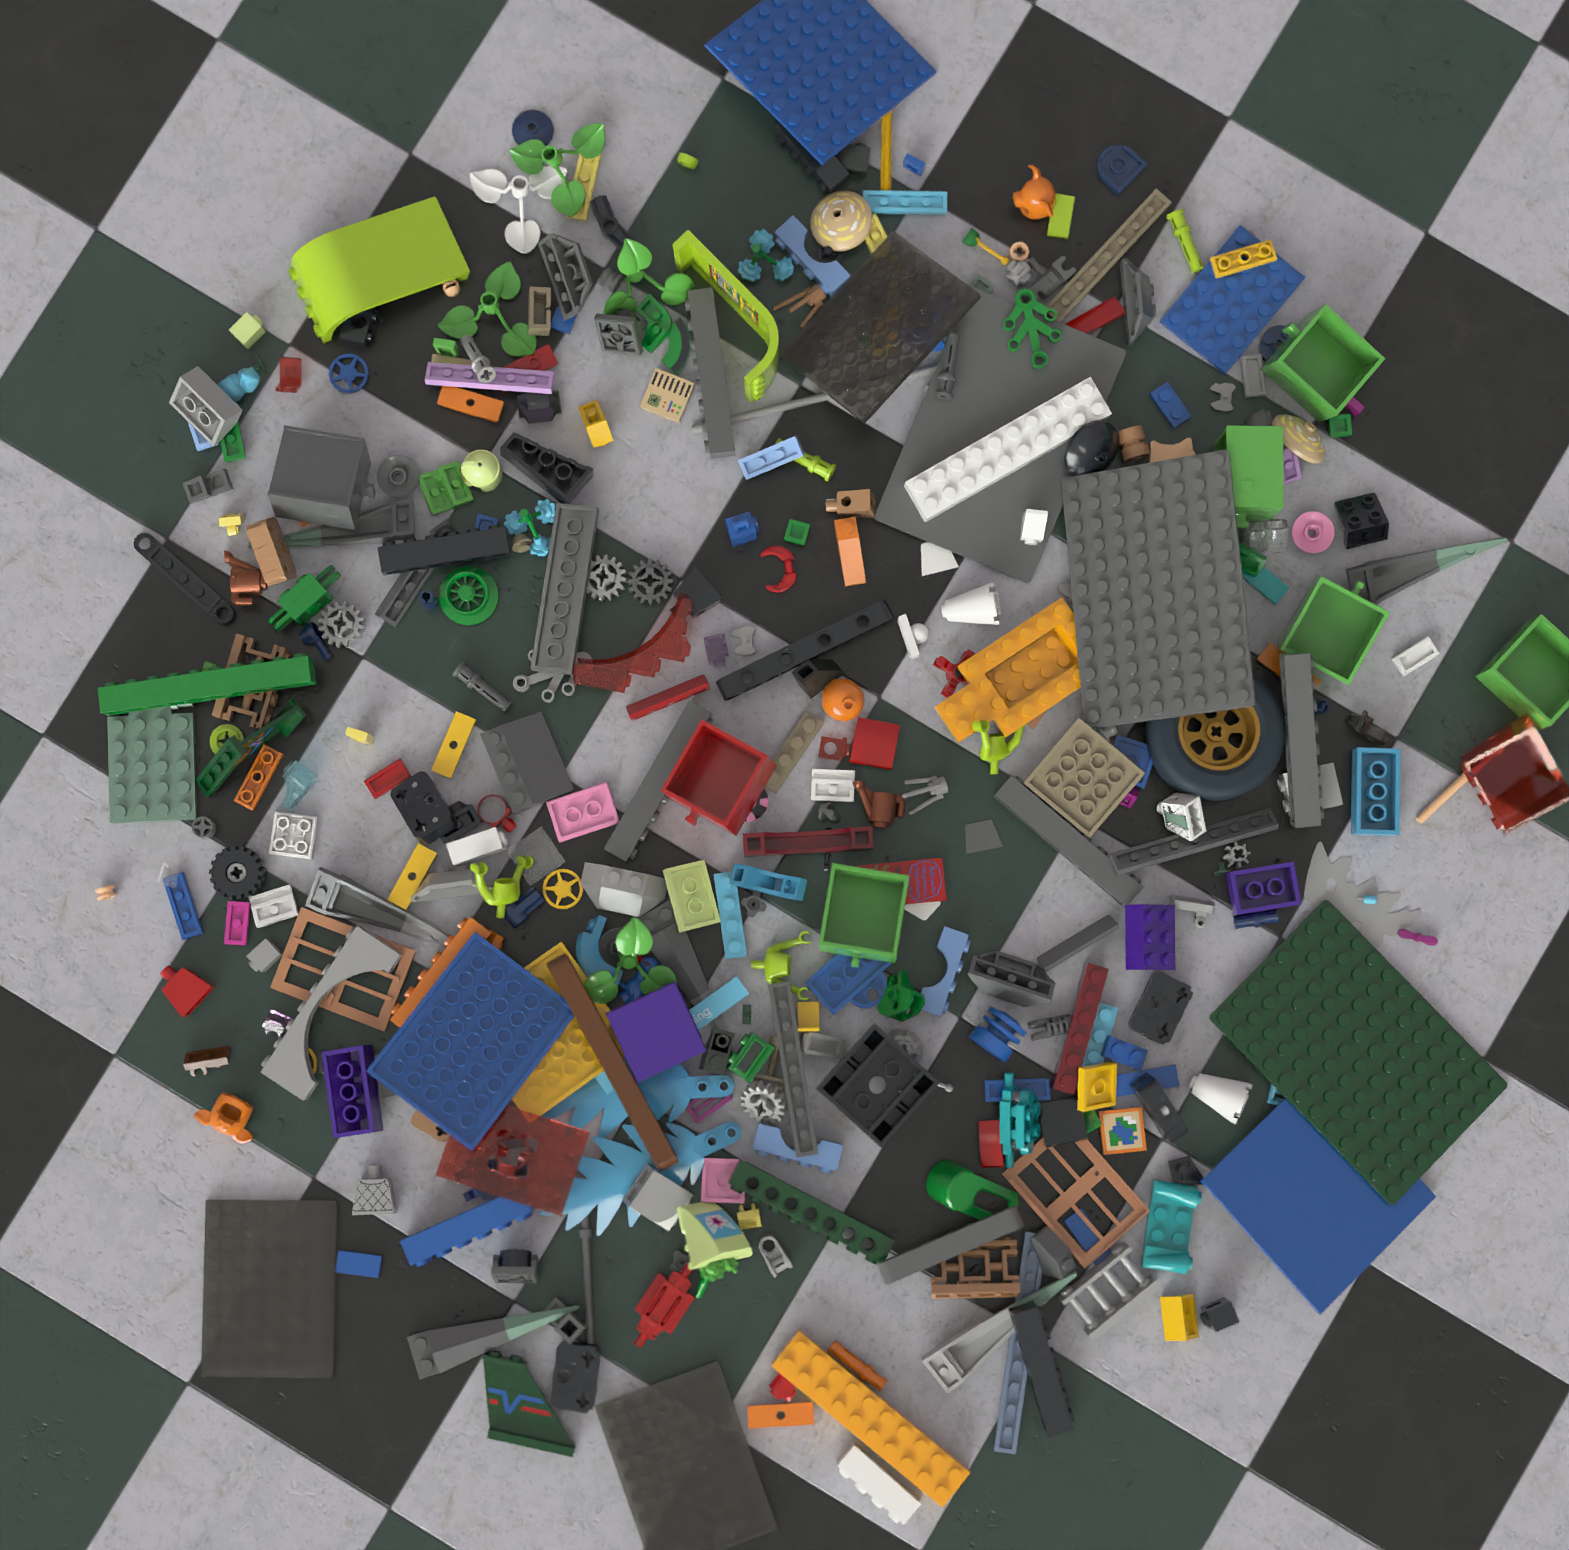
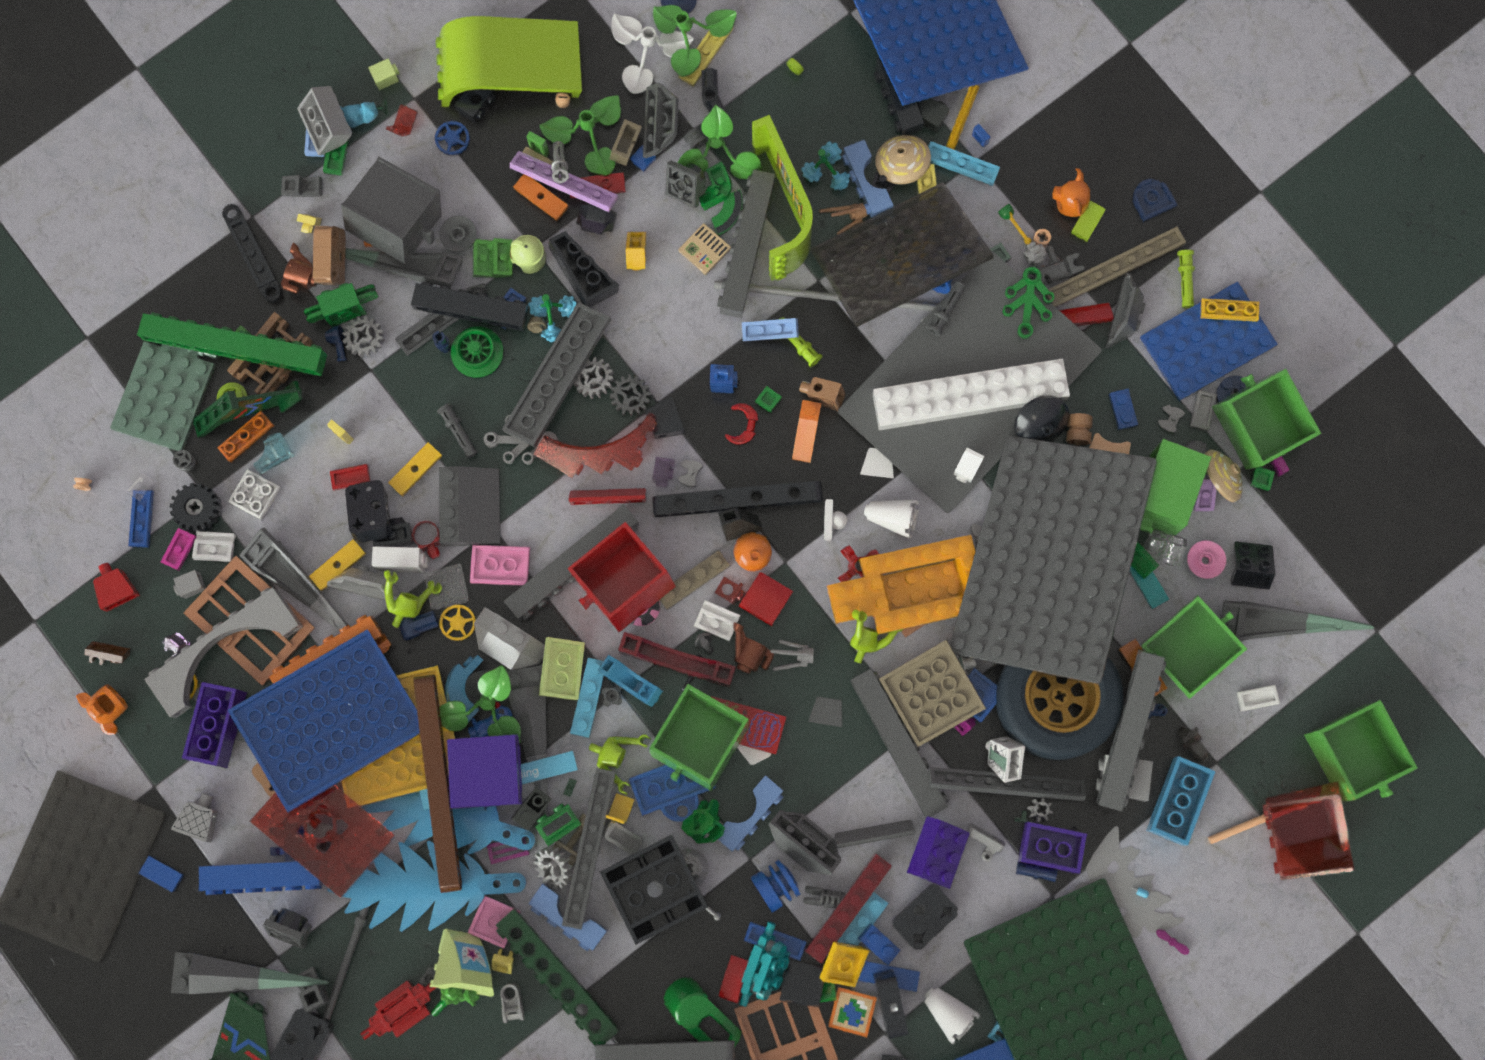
camera: 25 degrees right, 5 degrees down
(657, 1197) = (430, 914): light grey panel -> none

